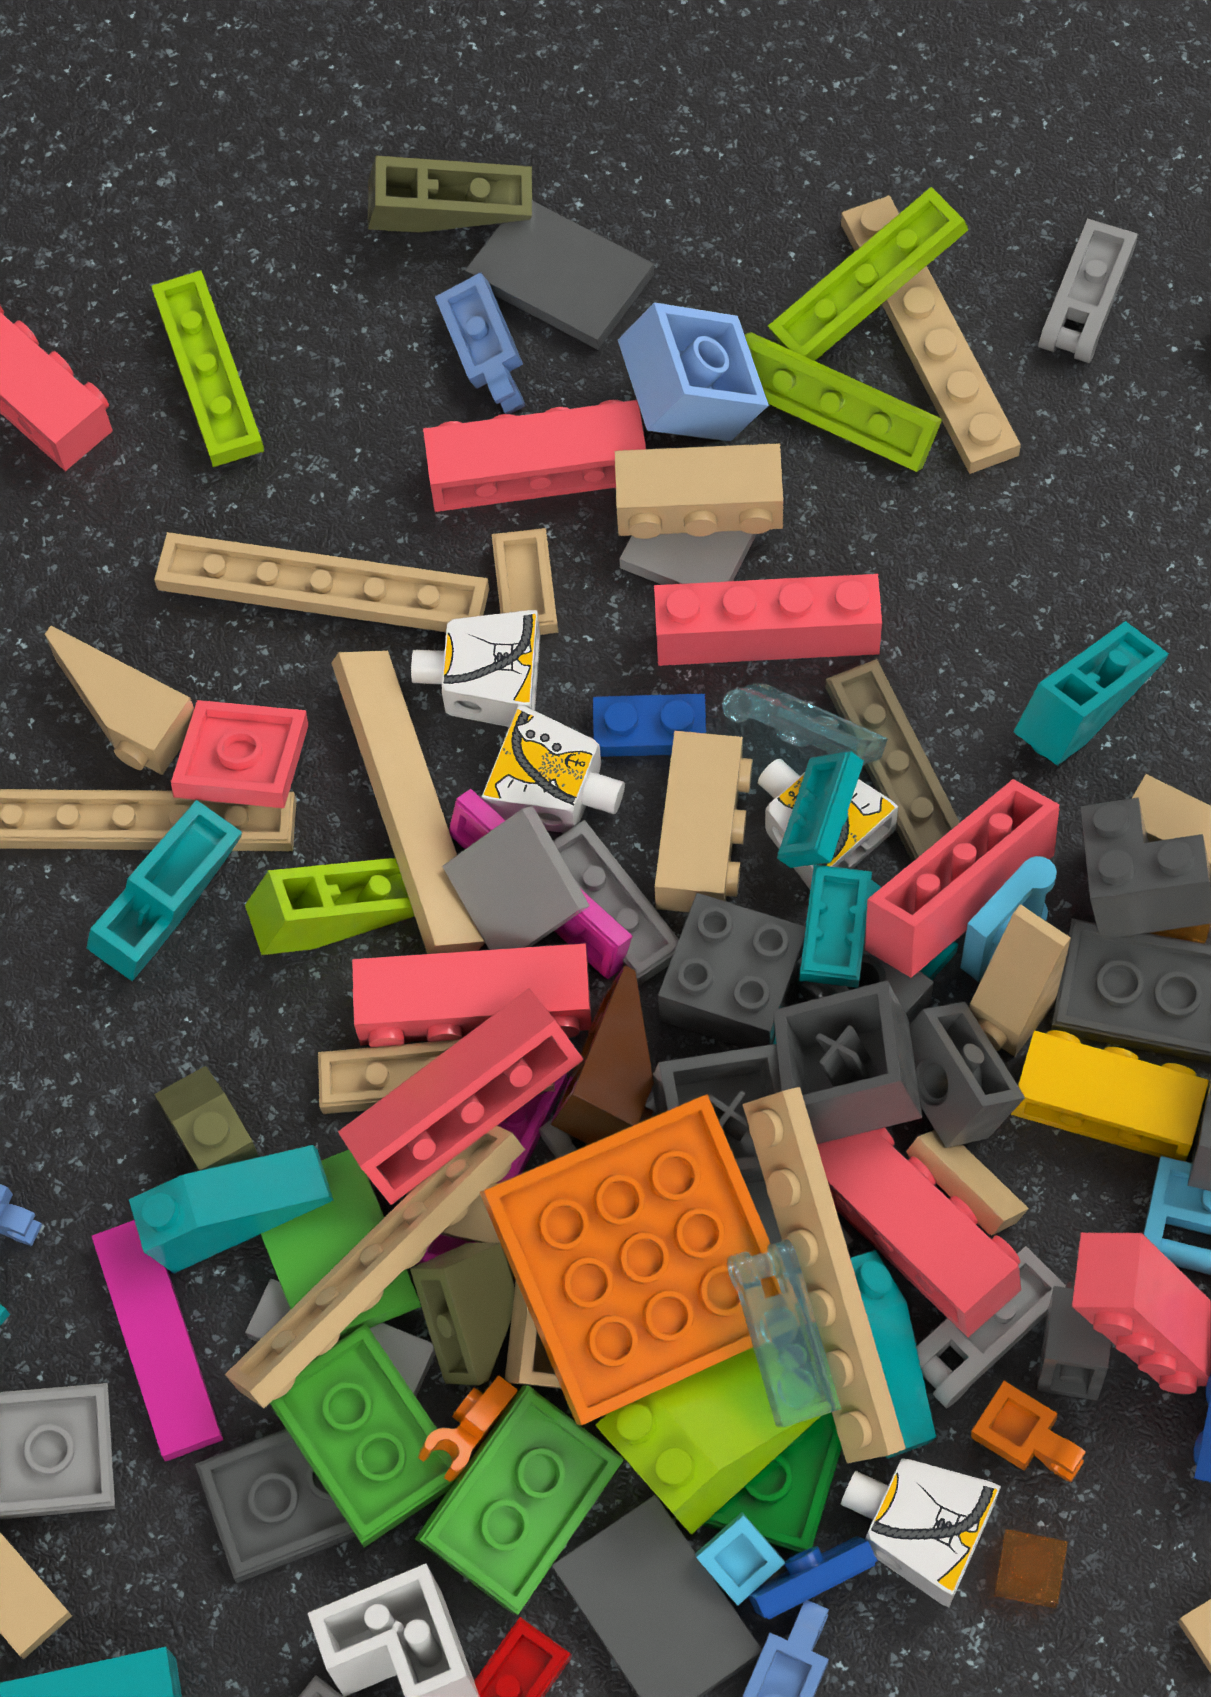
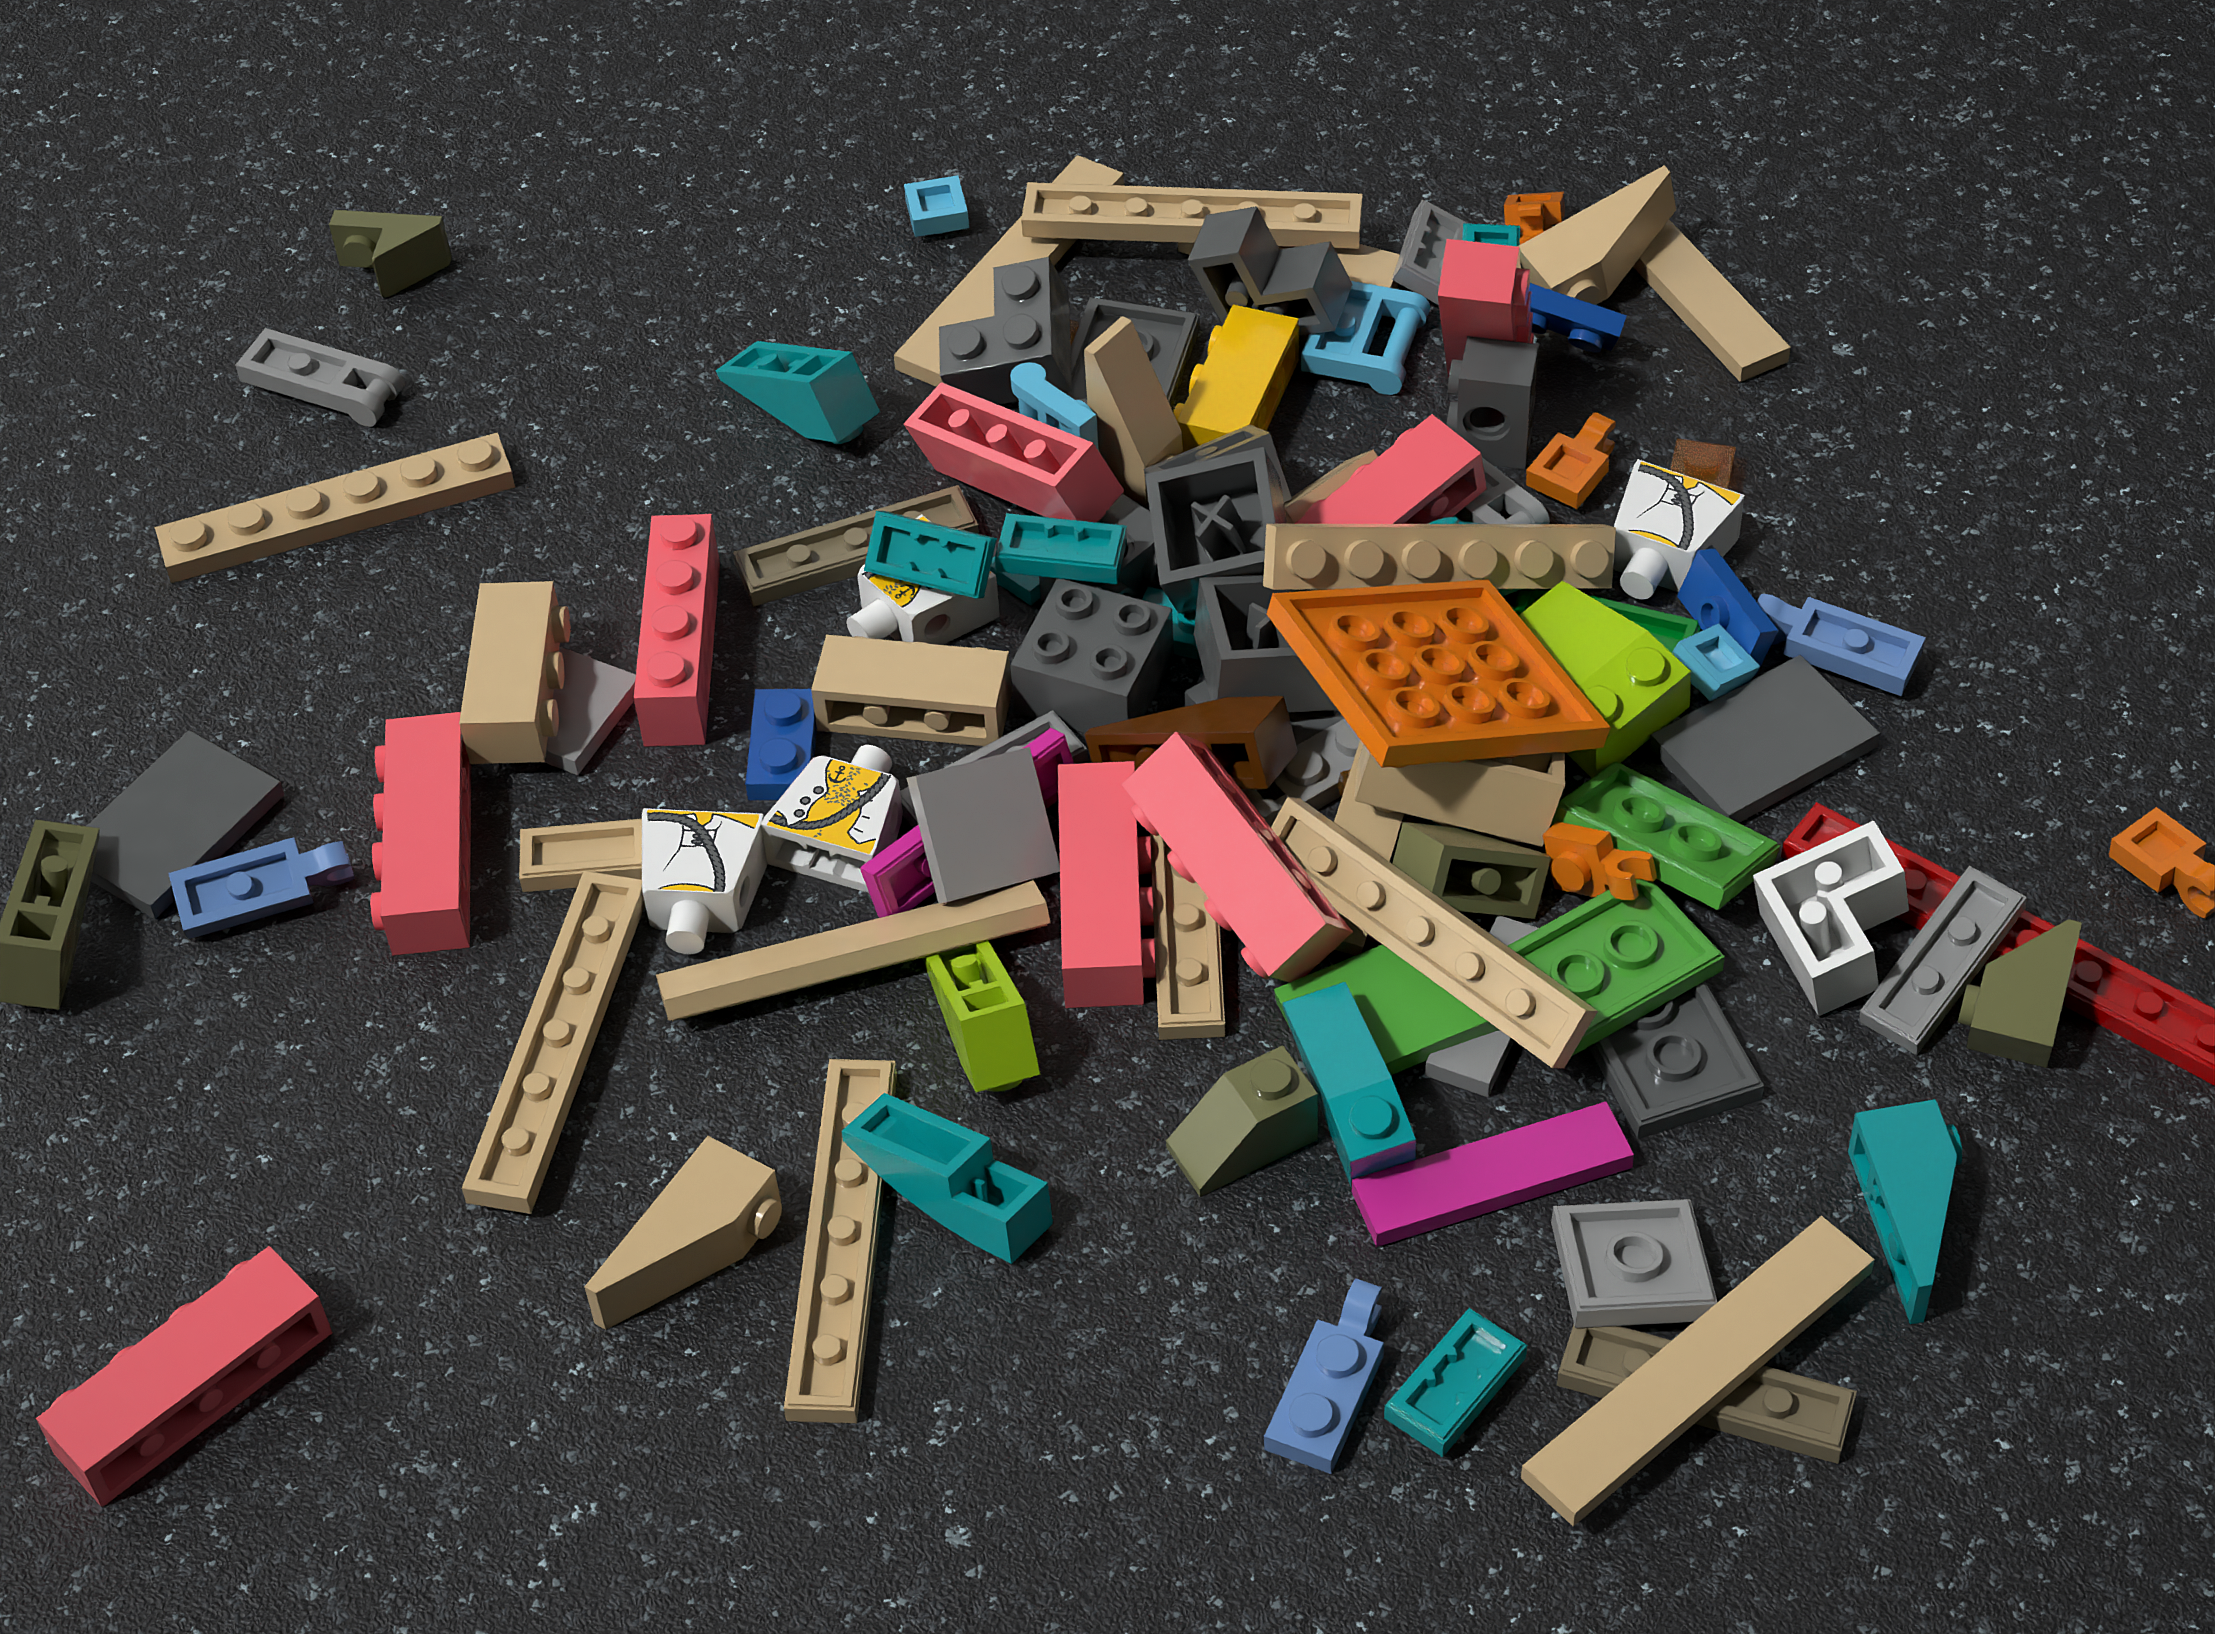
camera: 90 degrees left, 15 degrees down
(207, 368) = (223, 1165): lime plate -> none
(240, 754) = (783, 1097): coral plate -> none
(692, 372) = (363, 671): light blue brick -> none
(784, 1335) = (1506, 576): clear light blue plate -> none
(802, 722) = (810, 597): clear light blue plate -> none
(843, 404) = (411, 576): lime plate -> none
(869, 276) = (271, 529): lime plate -> none

